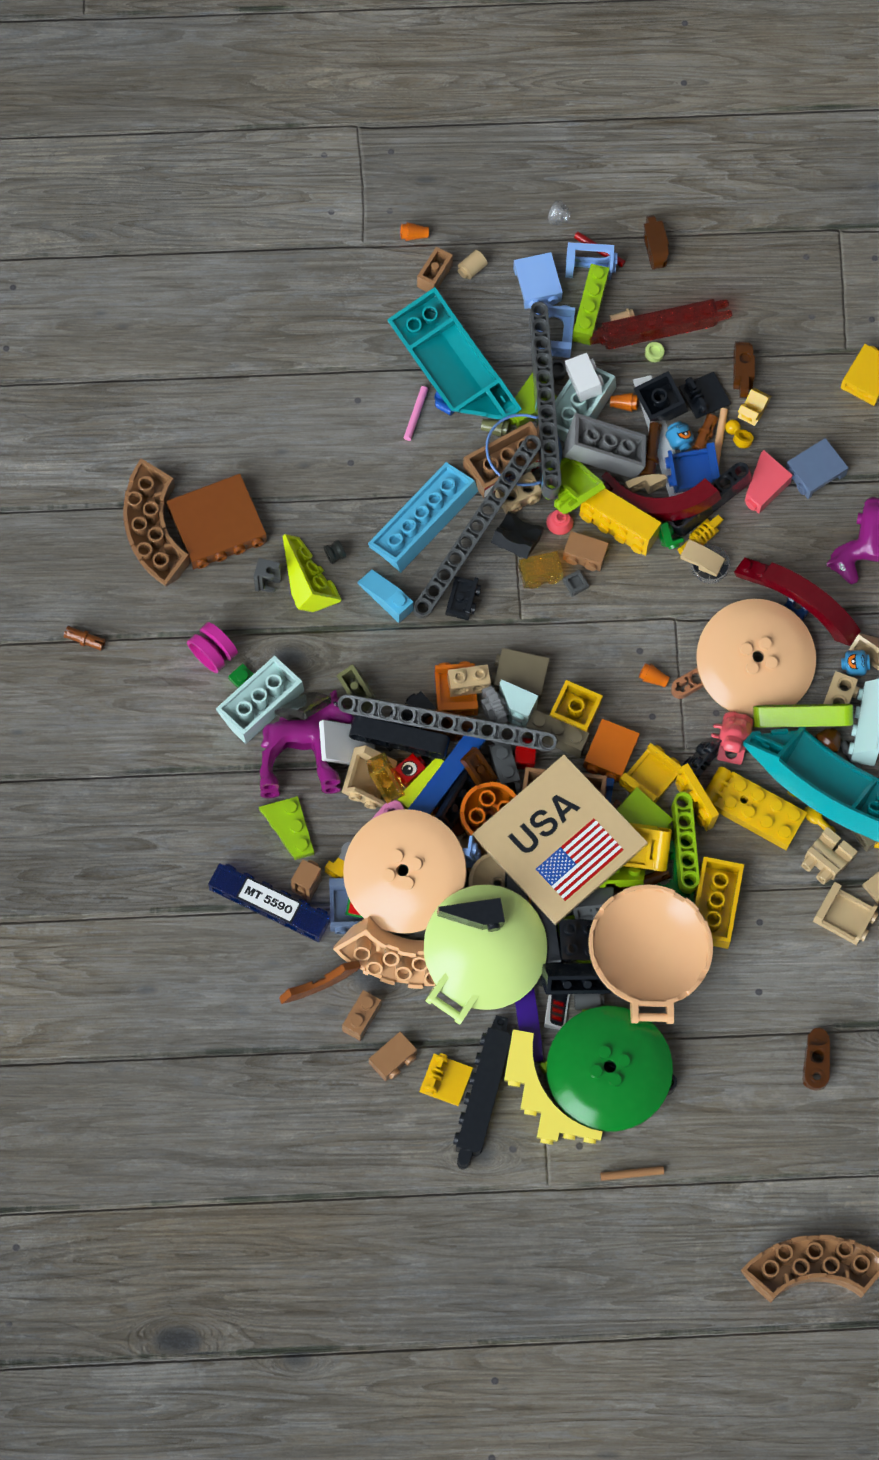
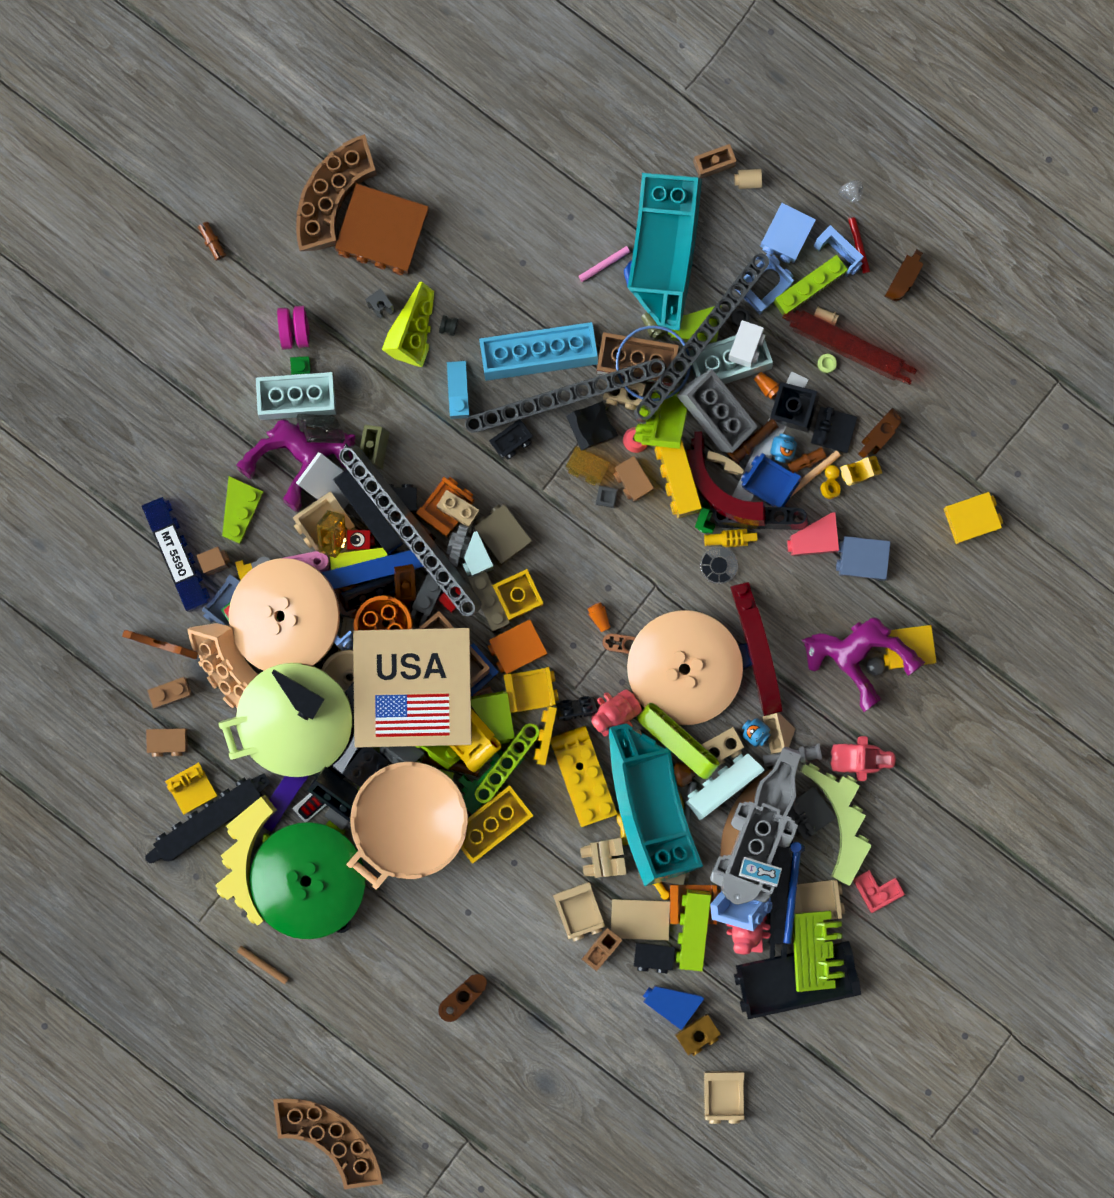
camera: 40 degrees right, 15 degrees up
(413, 231) = (728, 114): orange cone -> none
(703, 557) = (714, 557): tan slope -> none

